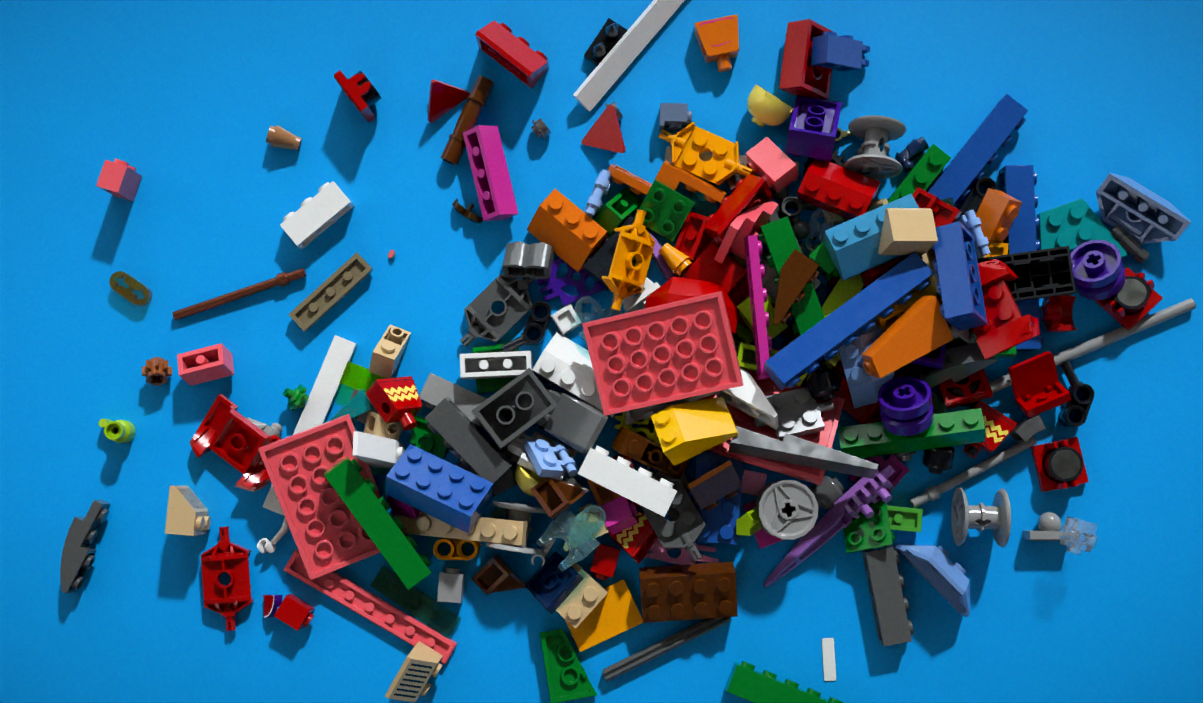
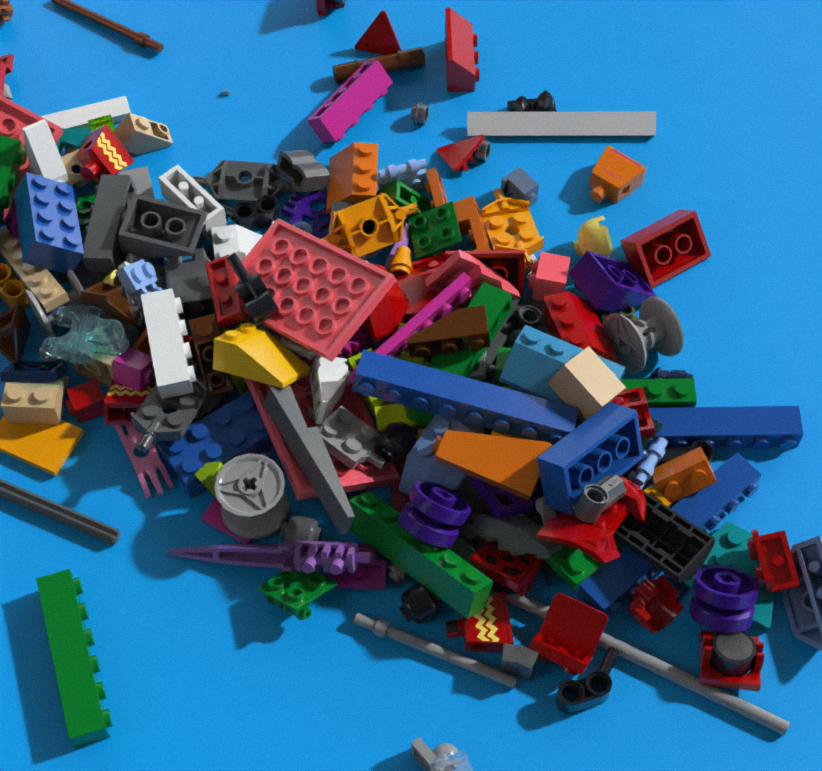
camera: 50 degrees right, 25 degrees down
(205, 364) = (29, 31): coral brick -> none
(296, 397) = (51, 103): green plant -> none
(316, 214) = (212, 25): white brick -> none
(330, 292) = (158, 72): dark tan plate -> none
(467, 213) = (304, 114): dark brown piece -> none
(612, 407) = (224, 295): none -> red tile
(640, 392) = (252, 291): none -> black beam
(688, 592) = (109, 481): reddish brown brick -> none
(714, 485) = (222, 410): slope -> none
(829, 665) = (141, 660): white sticker -> none
(838, 52) = (694, 258): blue hinge -> none
(886, 595) = (245, 659): dark grey brick -> none
(905, 518) = (333, 617): bright green plate -> none
(941, 573) = (307, 692): medium blue wedge -> none
(981, 517) = (391, 675): light grey piece -> none
(995, 297) = (598, 498): none -> dark grey piece
(1060, 463) = (513, 723): piece -> none
(1097, 216) = (774, 560): none -> red bracket
(1129, 244) = (781, 623): dark grey axle -> none

